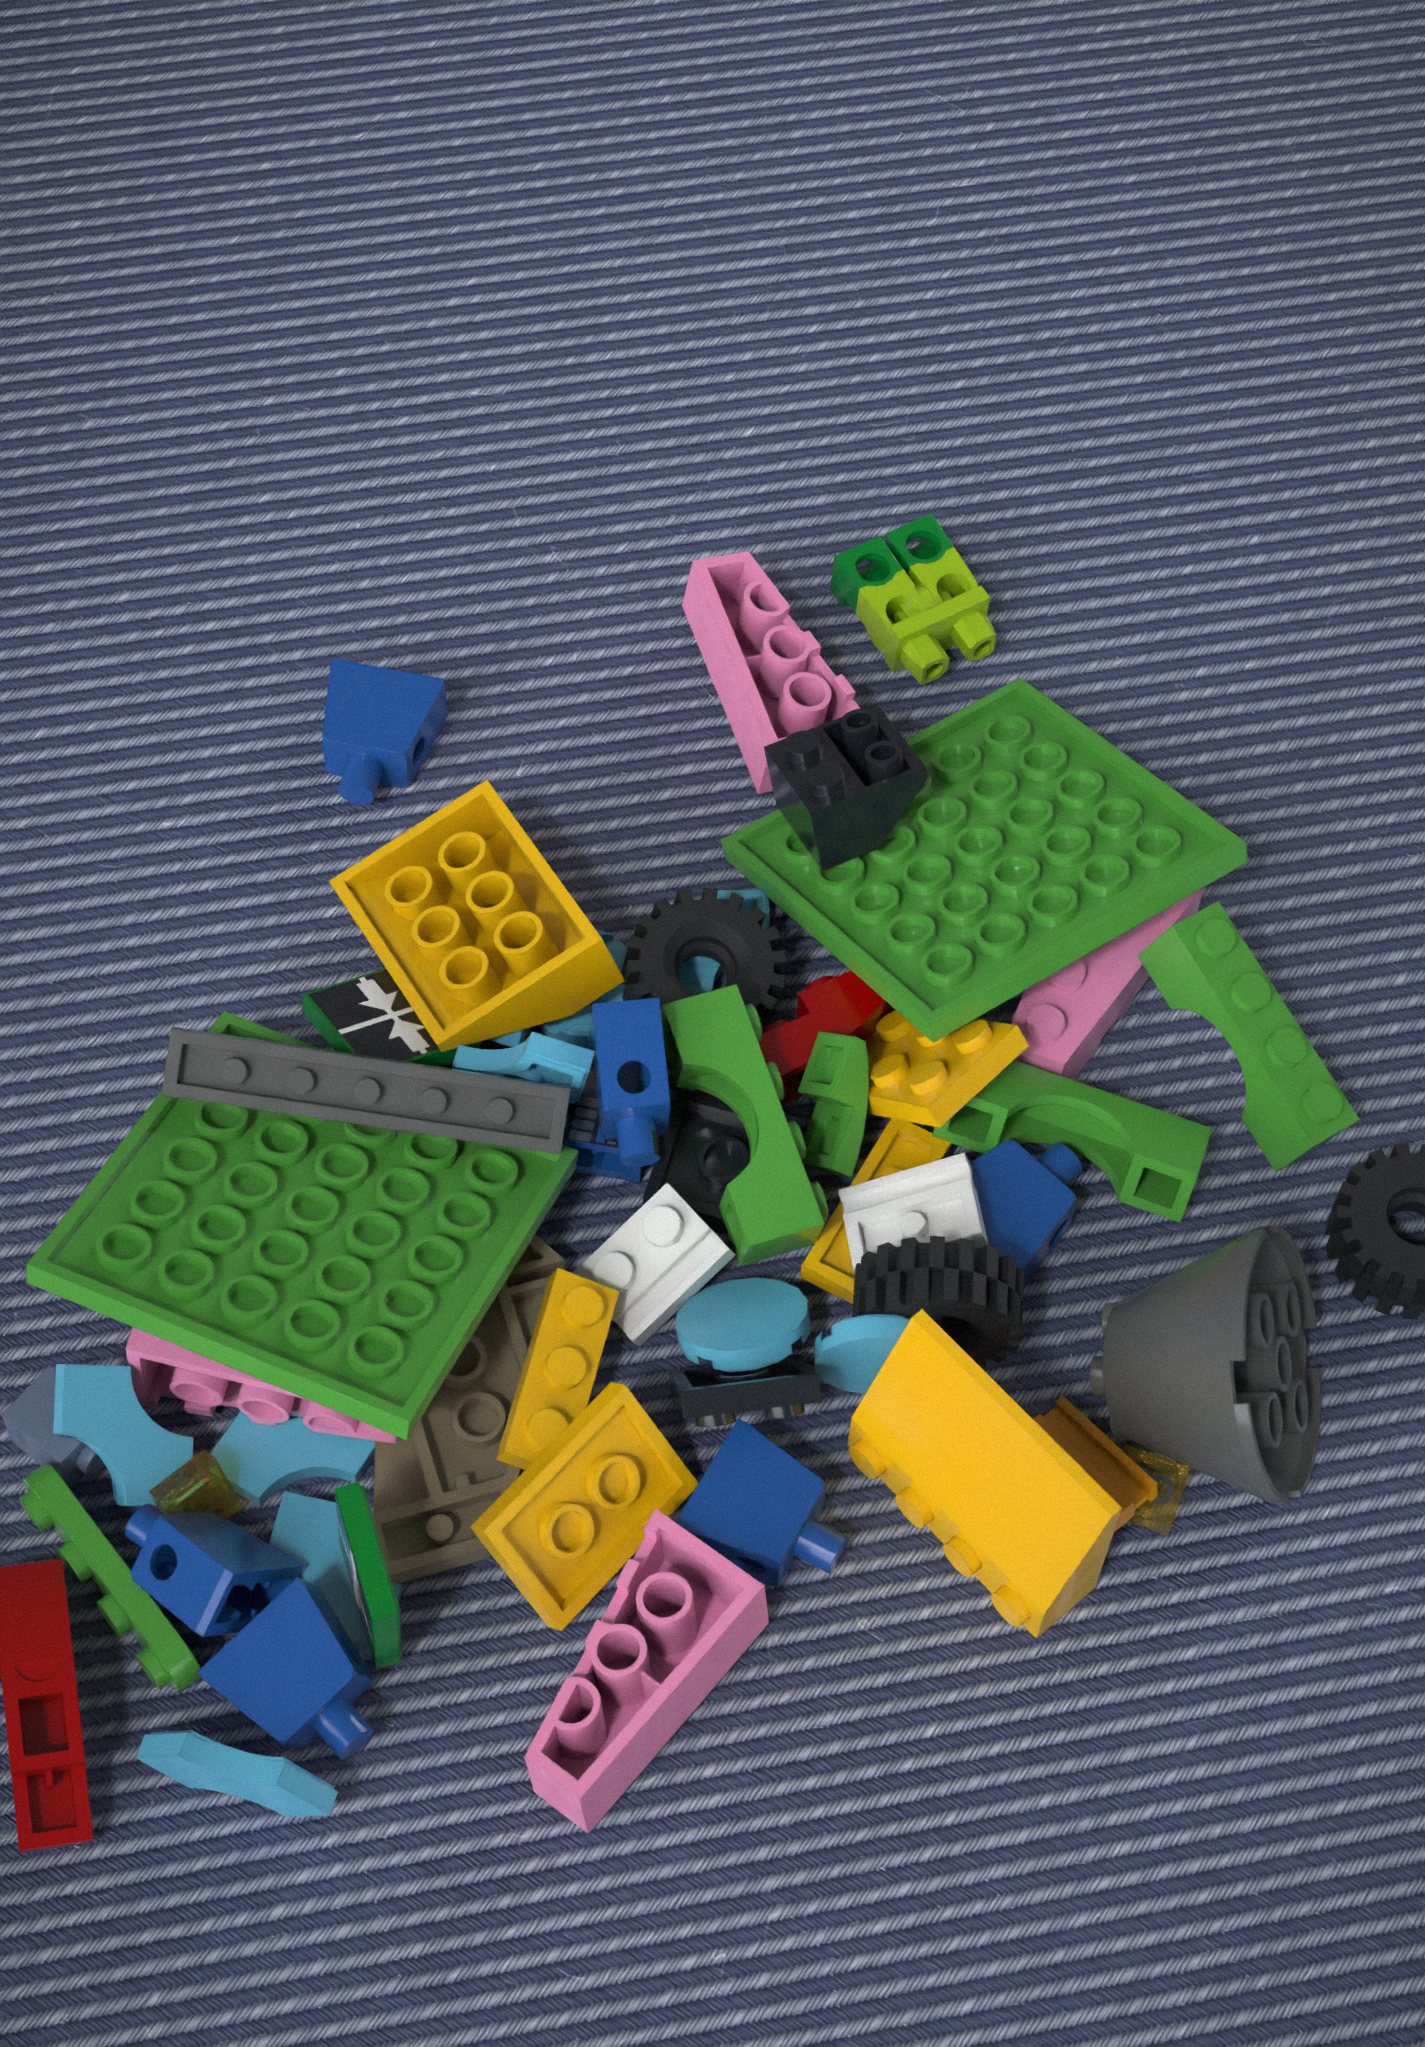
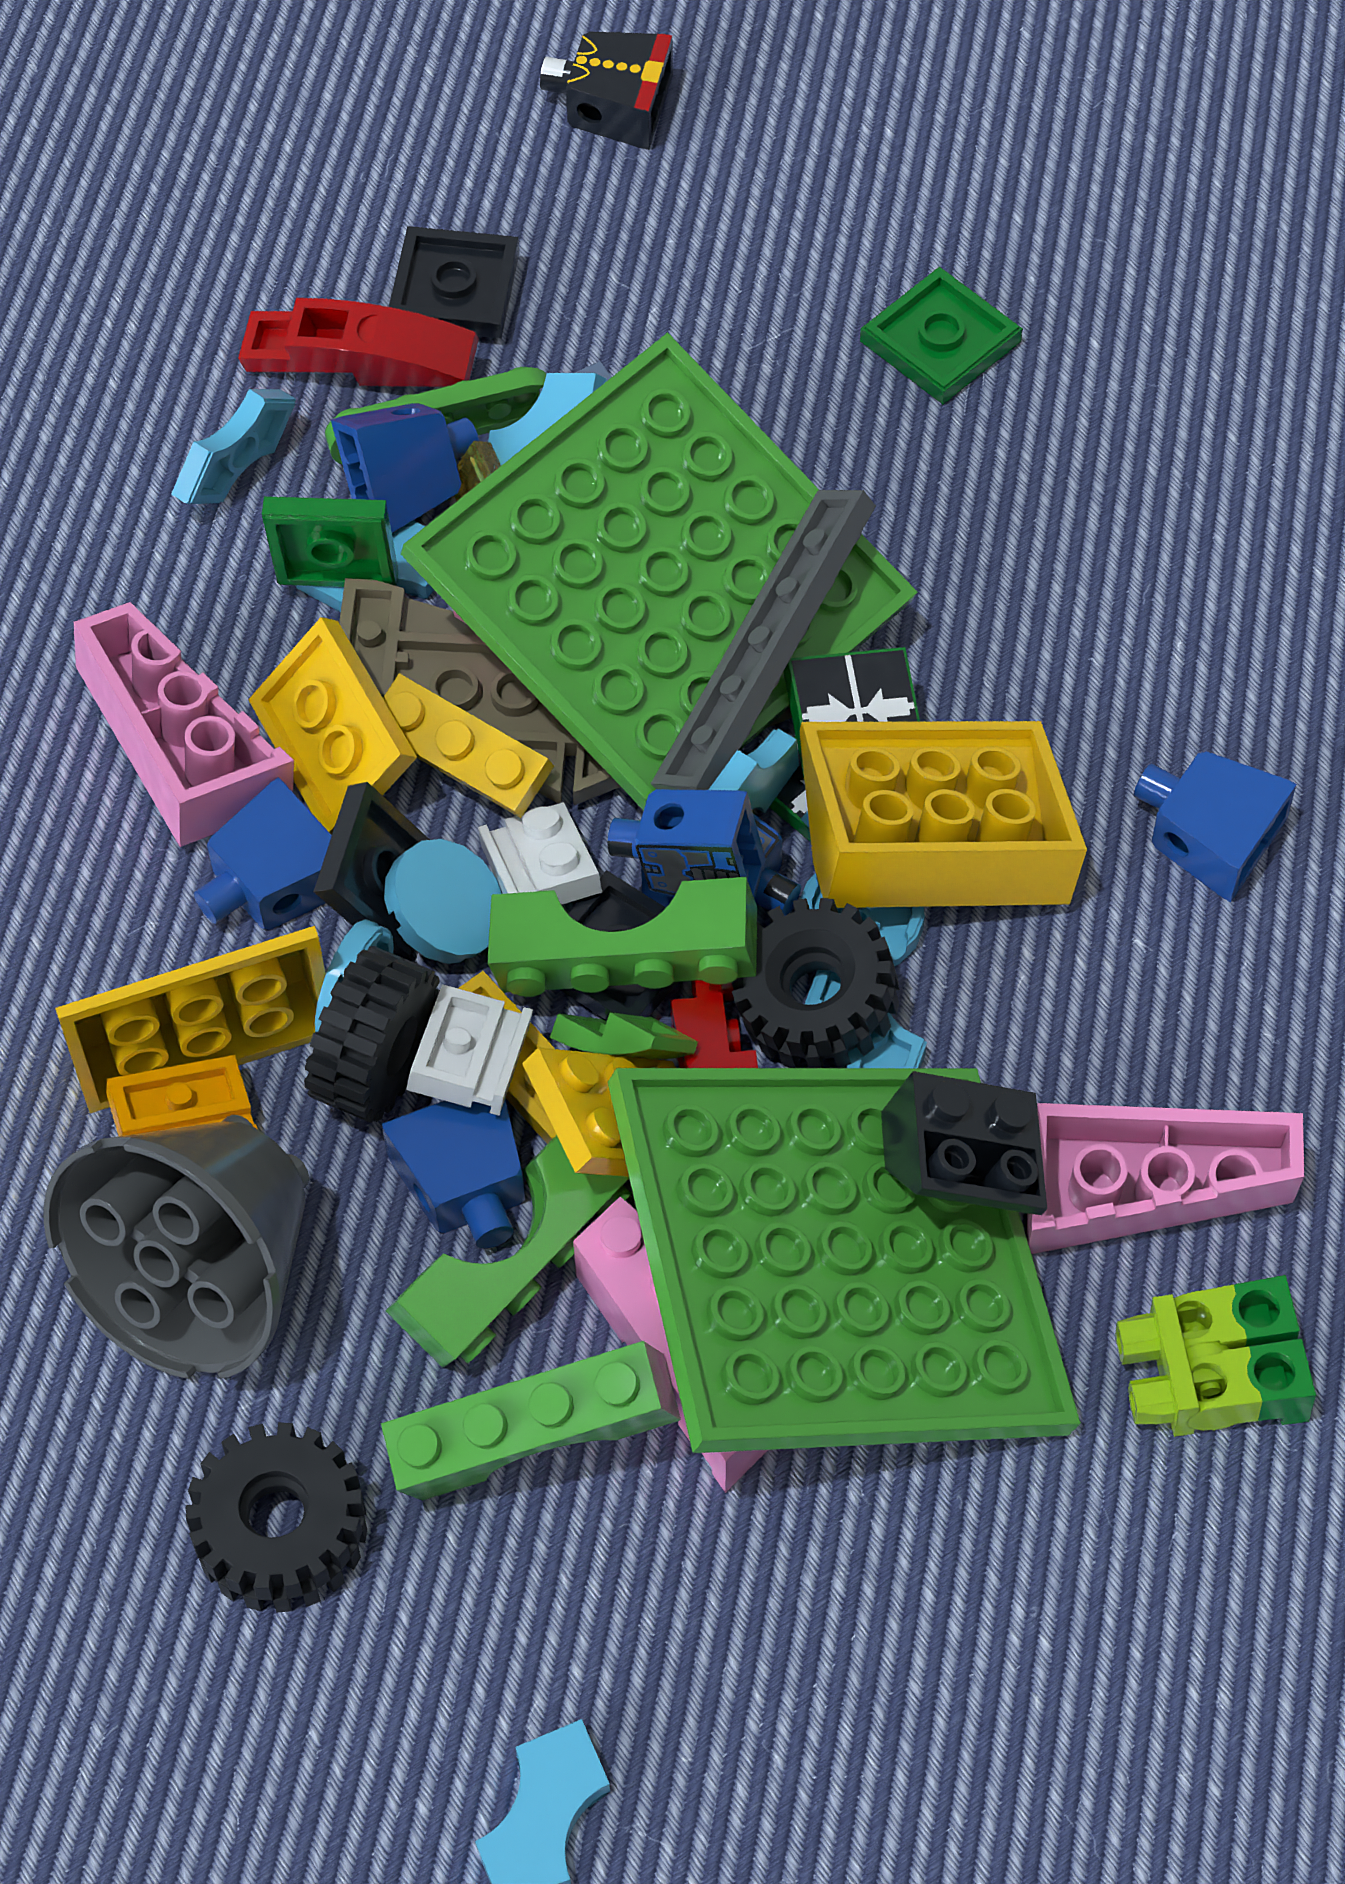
camera: 115 degrees right, 0 degrees up
(296, 1673) = (295, 471): blue torso -> none

